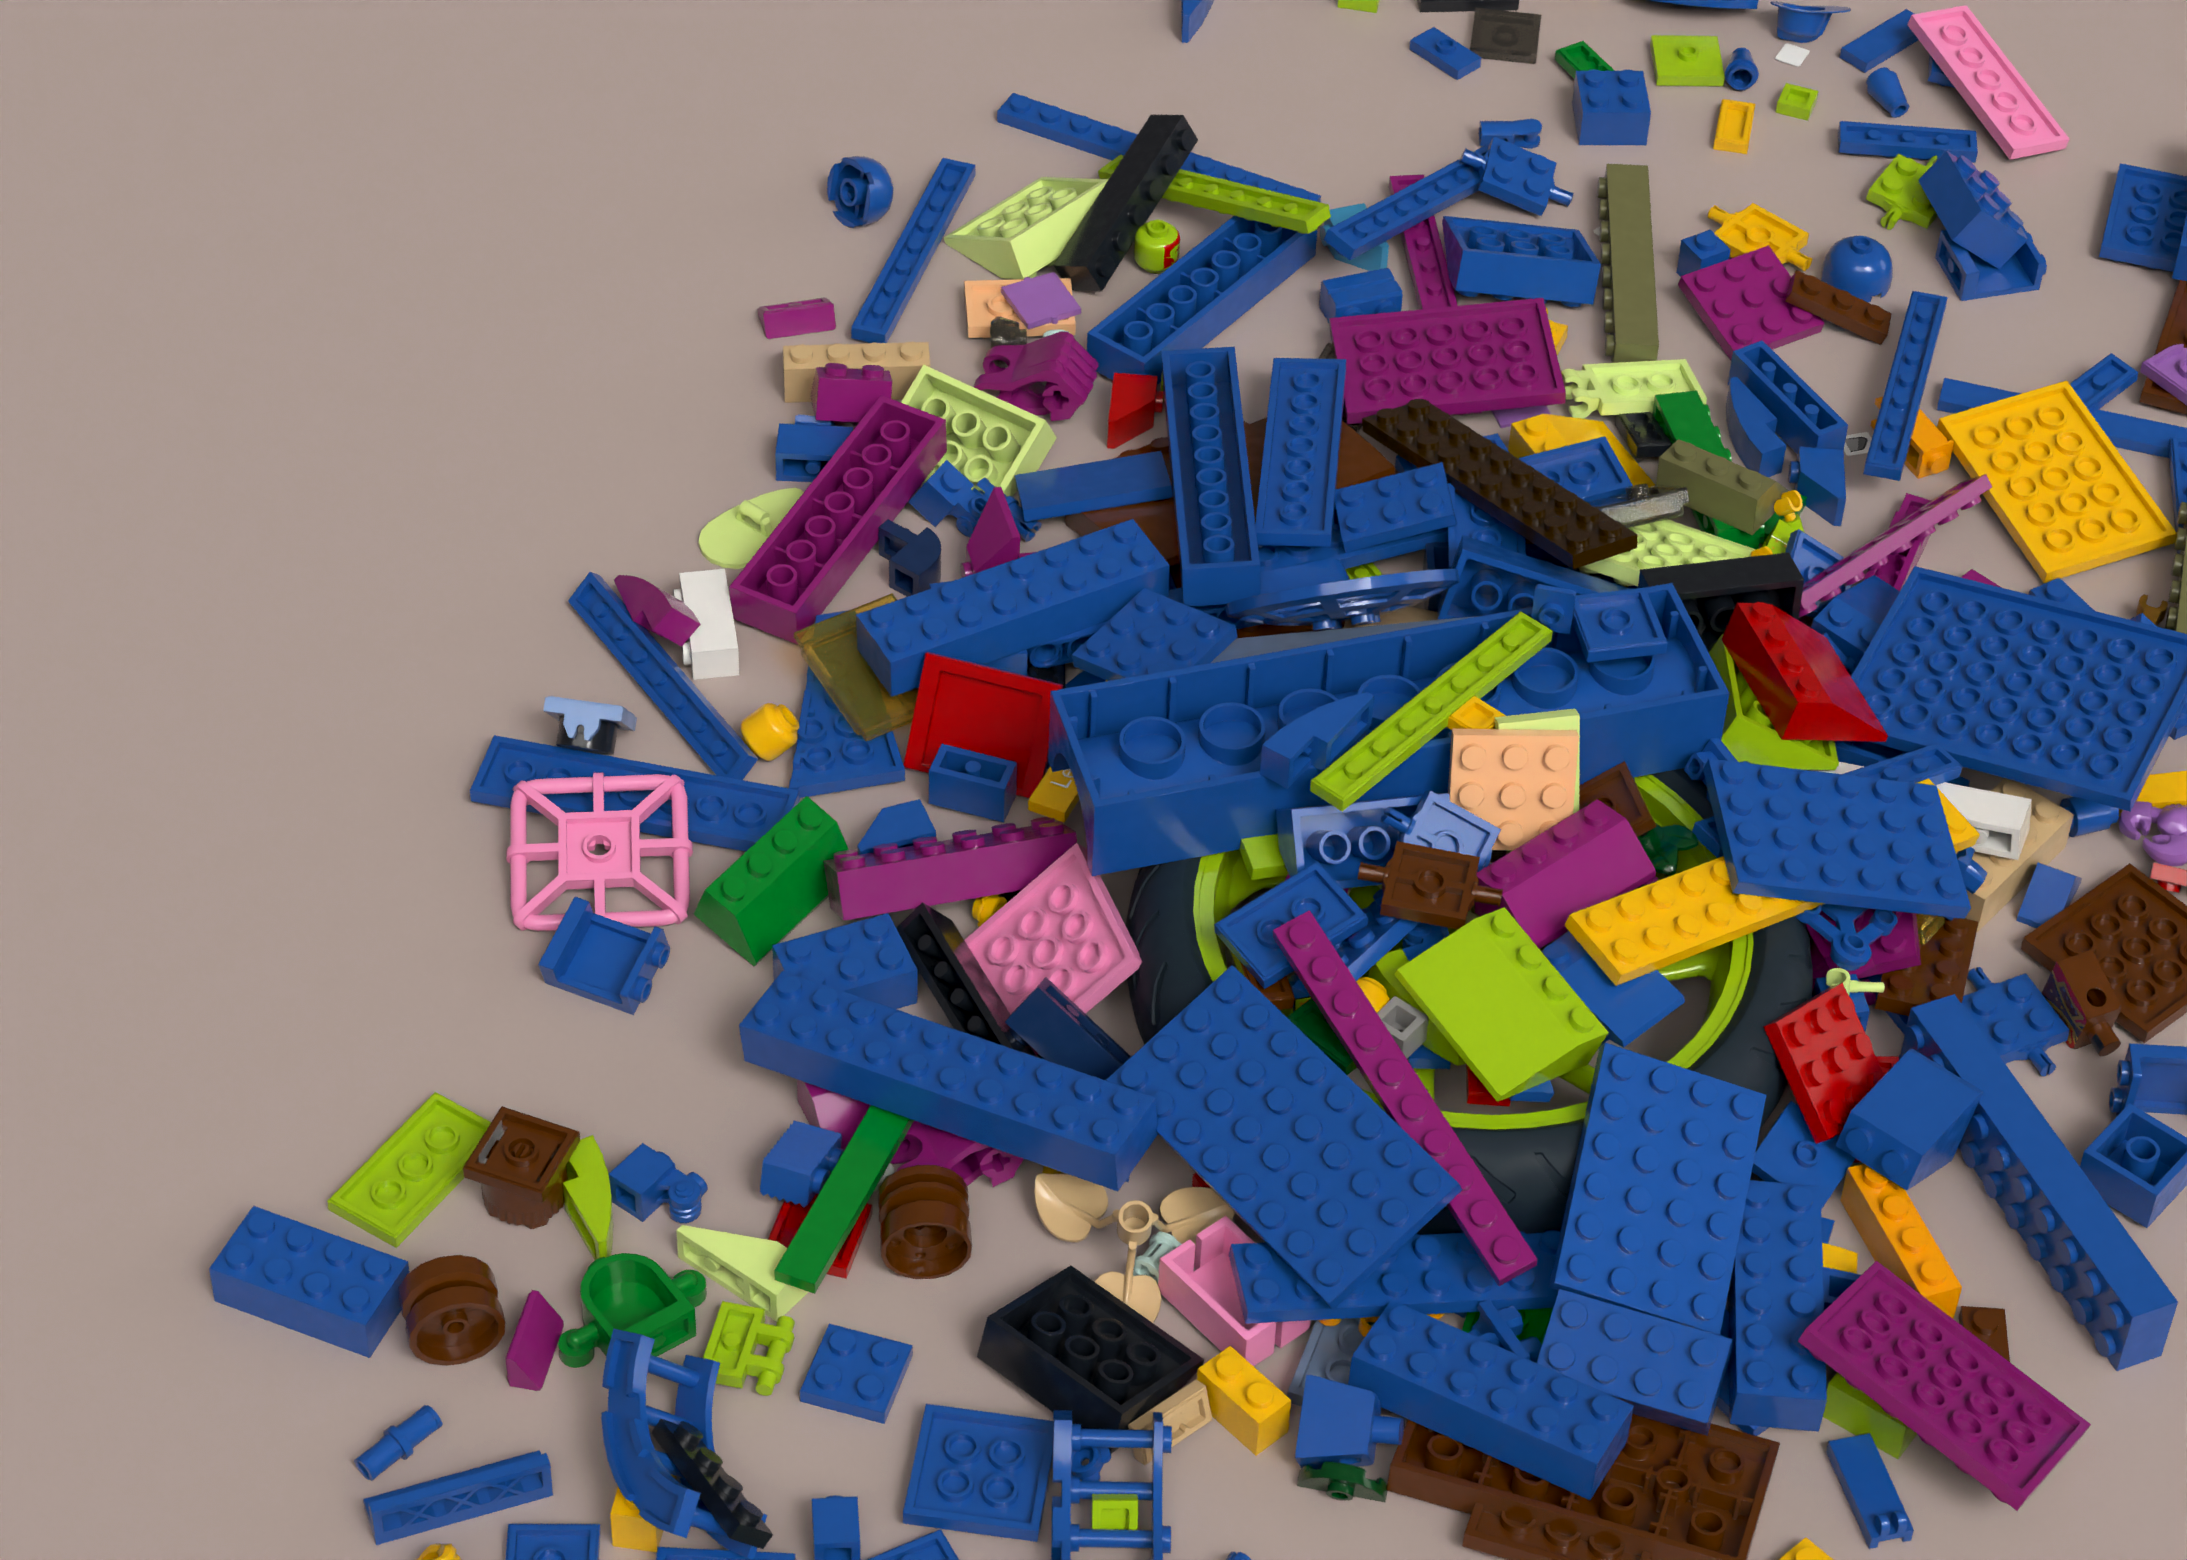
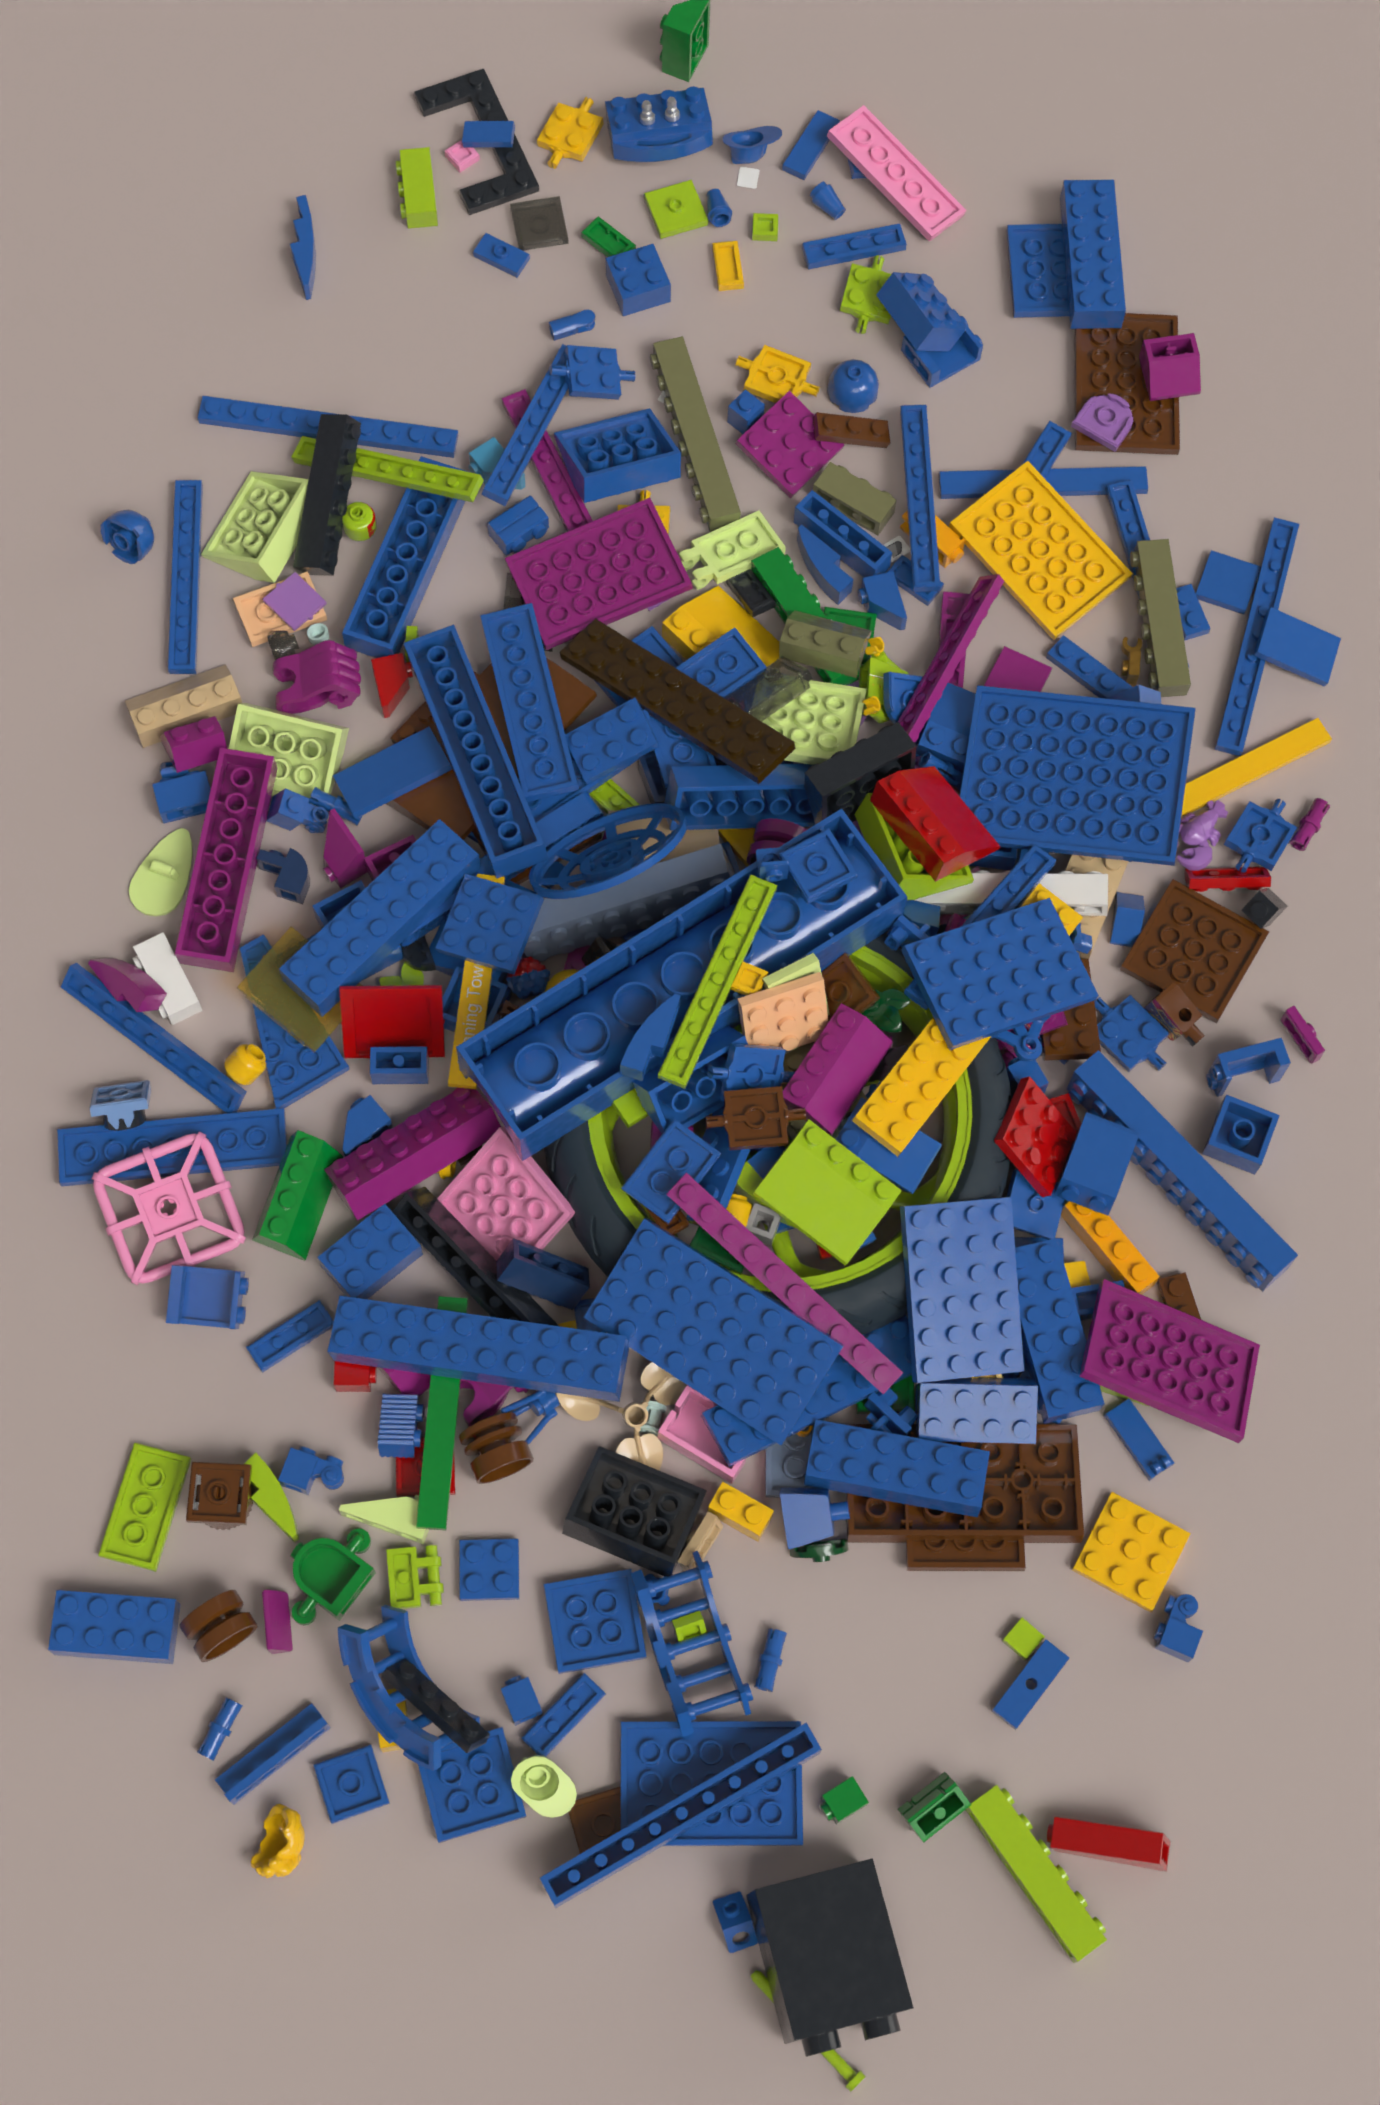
camera: 20 degrees left, 25 degrees up
(689, 1040) = (290, 1336): none -> blue tile
(764, 1097) = (353, 1377): none -> red slope
(797, 318) = (123, 665): magenta slope -> none
(1013, 1198) = (541, 1404): none -> blue plant
(1824, 372) = (855, 498): none -> olive brick
(1839, 975) = (1035, 1067): yellowish green hand -> none
(1877, 490) = (903, 575): none -> blue tile

